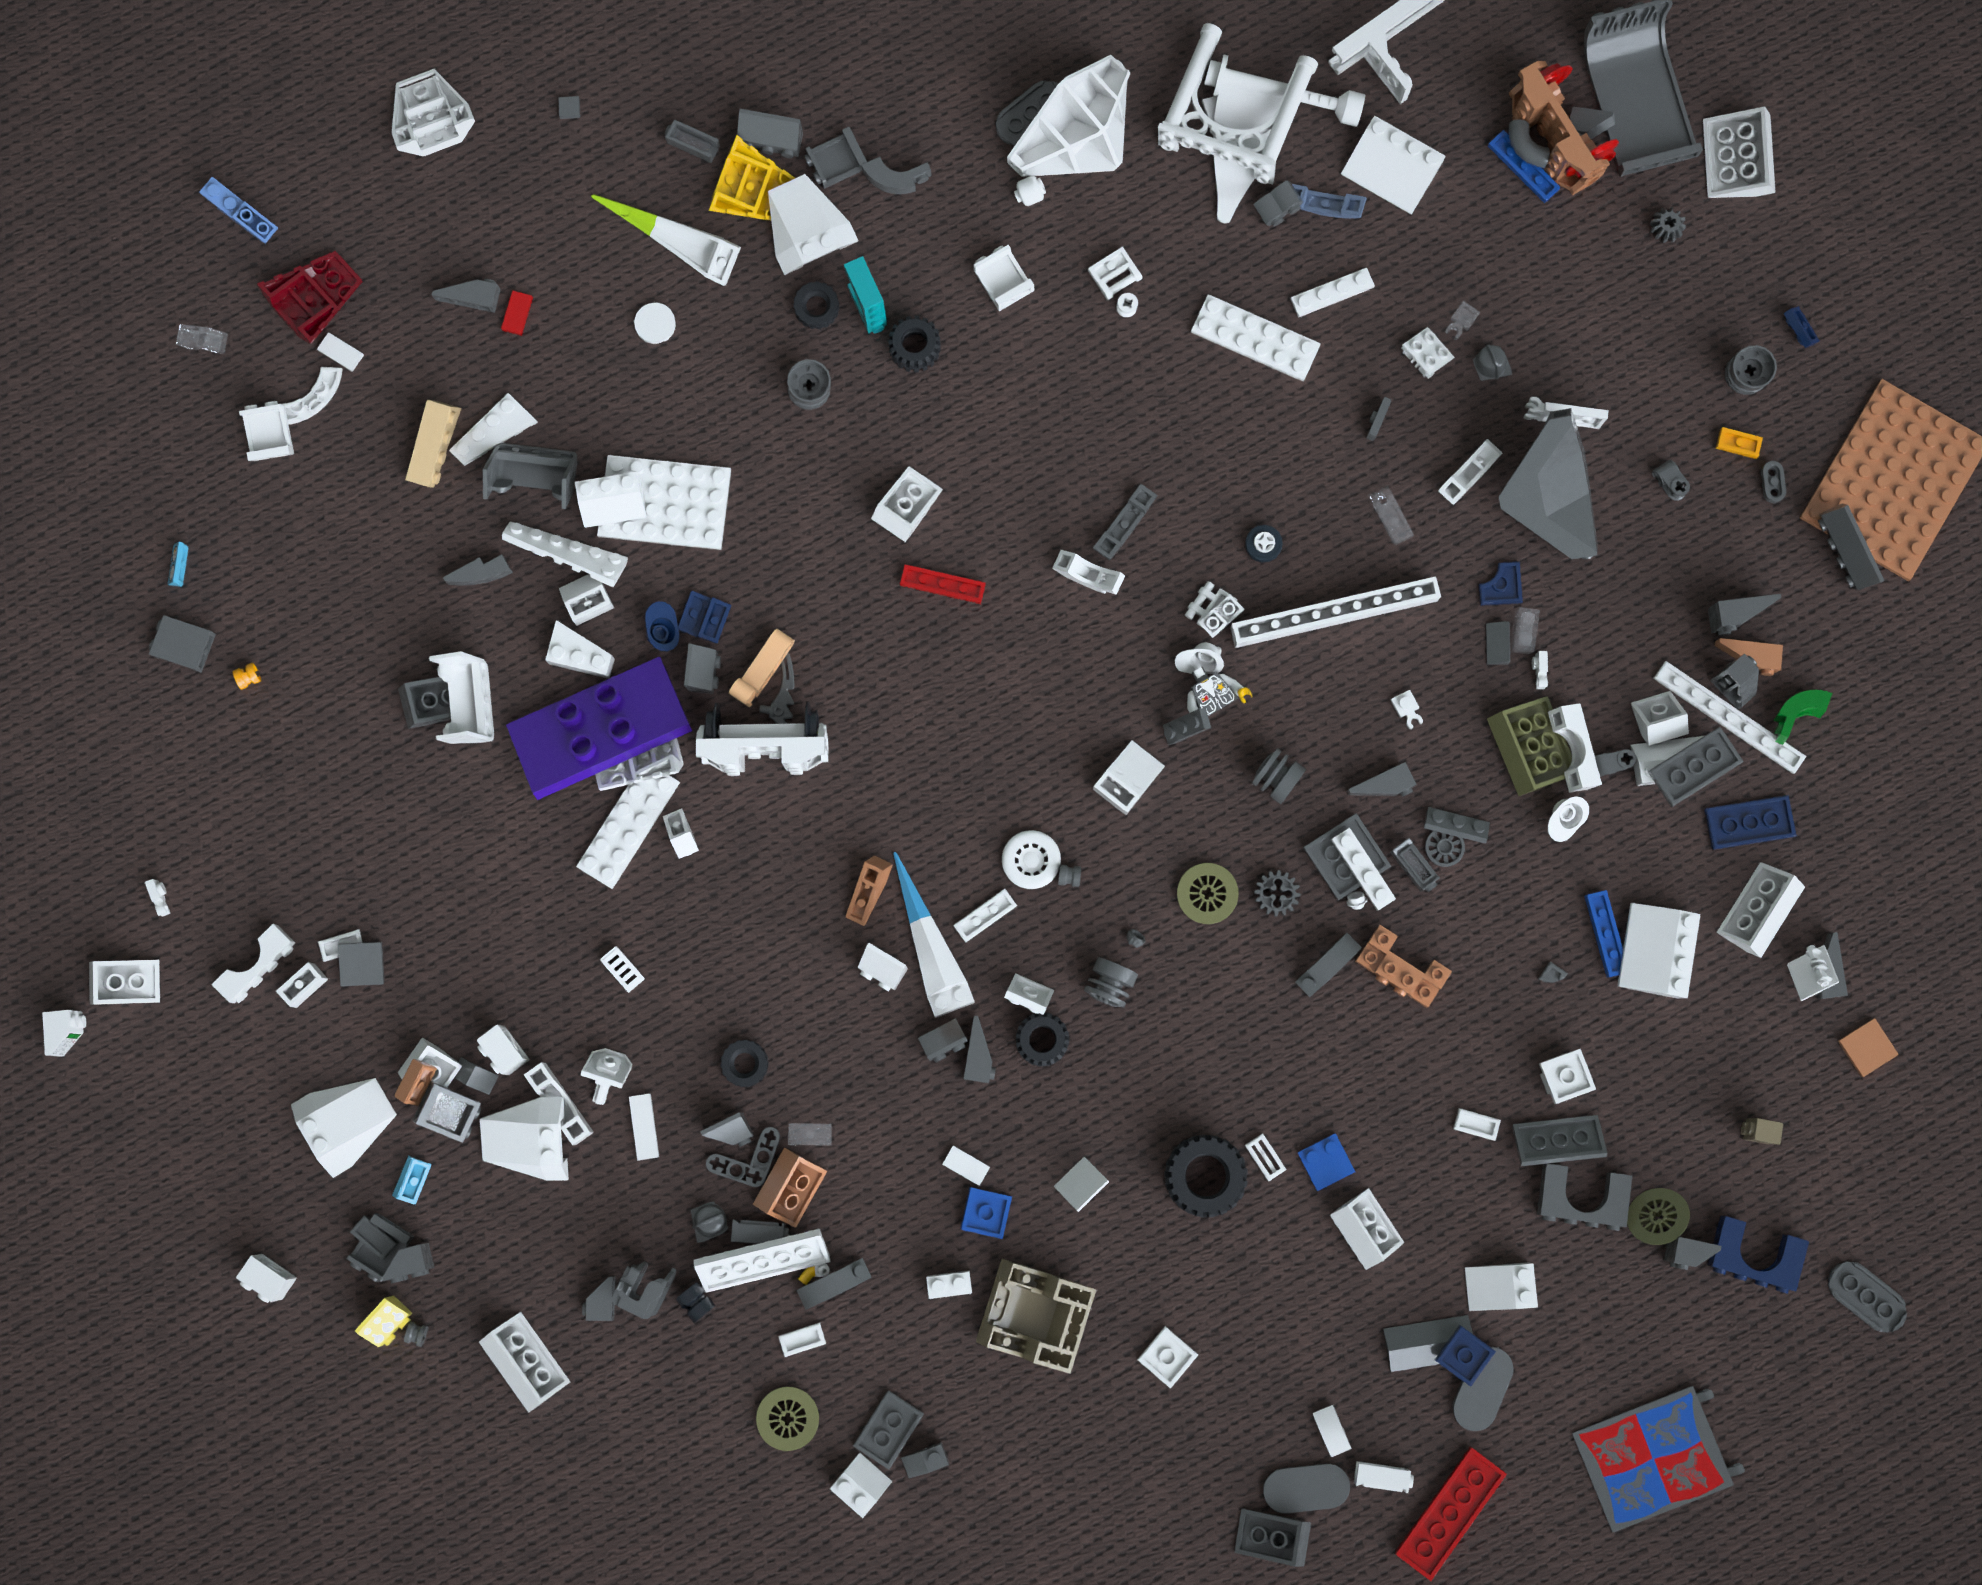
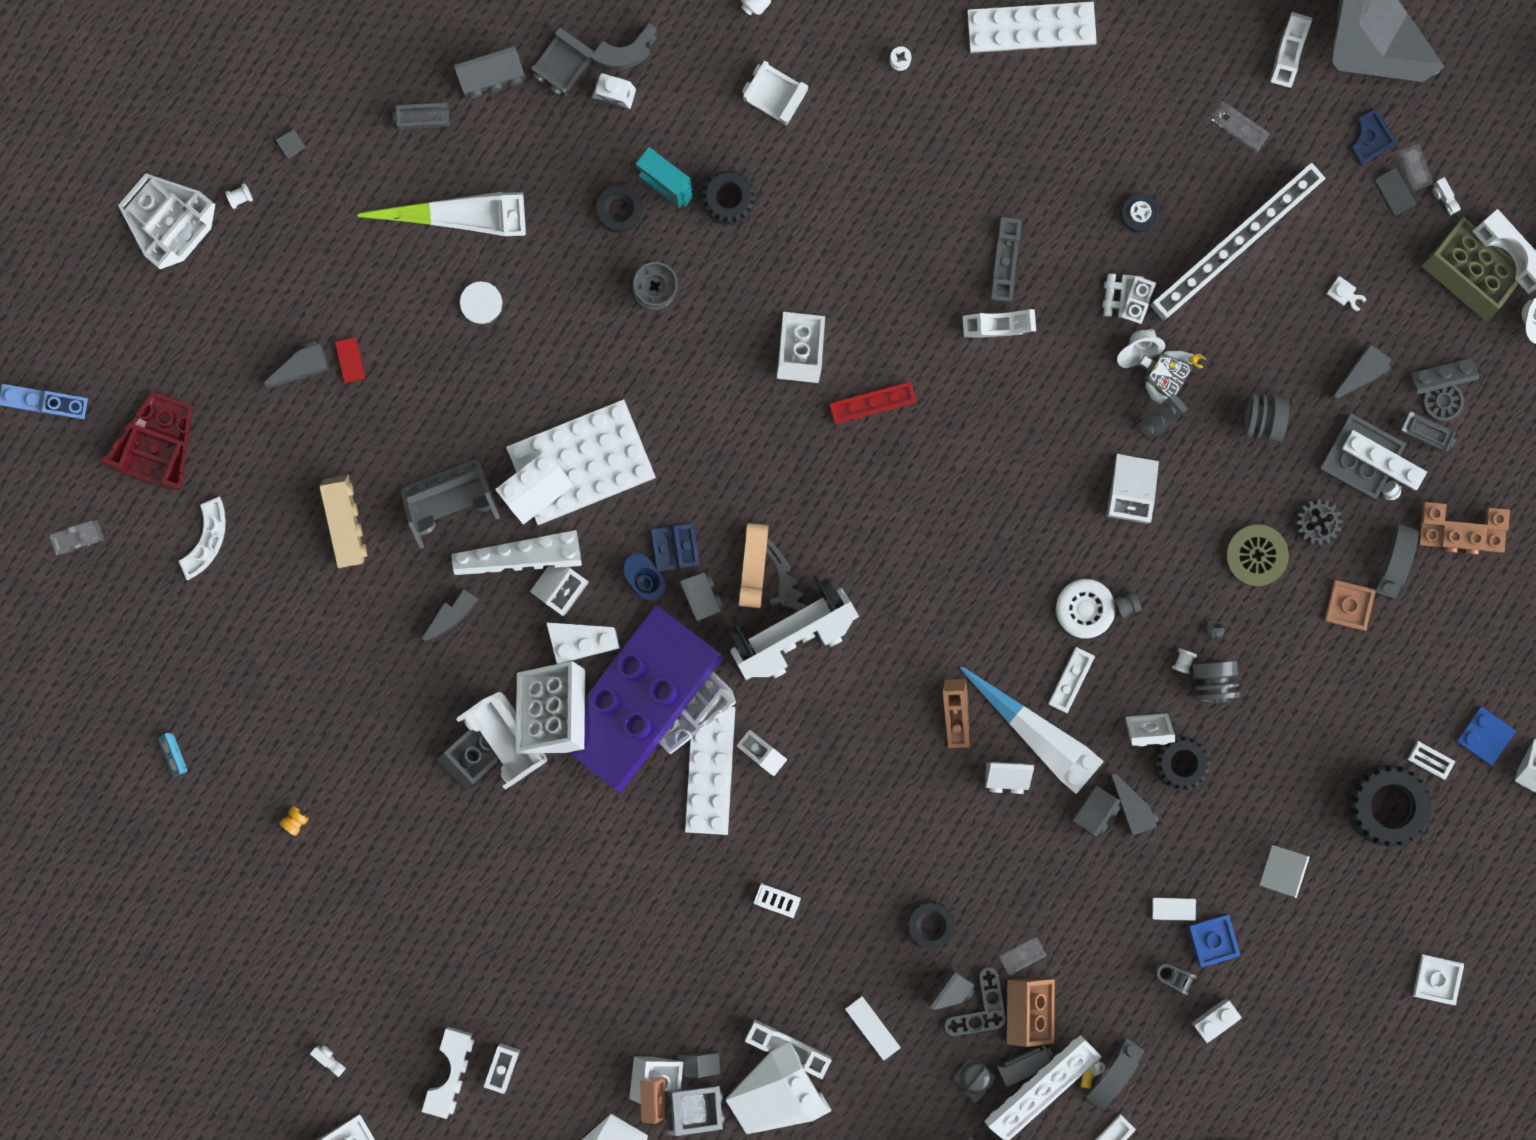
camera: 30 degrees left, 5 degrees up
(181, 643) = (218, 824): dark grey panel -> none
(267, 431) = (186, 591): white panel -> none
(329, 946) = (515, 1014): white tile -> none
(340, 352) = (209, 481): white tile -> none
(361, 963) = (542, 1021): dark grey tile -> none
(496, 427) = (390, 475): white wing -> none
(501, 127) = (239, 196): none -> white bush
(502, 1050) = (713, 1030): white brick -> none
(518, 696) = (550, 709): none -> white slope
(607, 1069) = (814, 996): white piece -> none
(746, 182) = (503, 128): yellow wedge -> none
(805, 224) = (569, 139): white wedge -> none
(865, 202) = (614, 91): none -> white torso
(934, 1227) = (1178, 978): none -> dark grey piece
(1036, 1316) = (1307, 1007): dark tan slope -> none
(1092, 952) = (1184, 661): none -> white bush
(1112, 267) = (866, 32): white plate -> none
(1266, 981) = (1349, 605): none -> nougat tile
(1377, 418) = (1181, 43): dark grey plate -> none

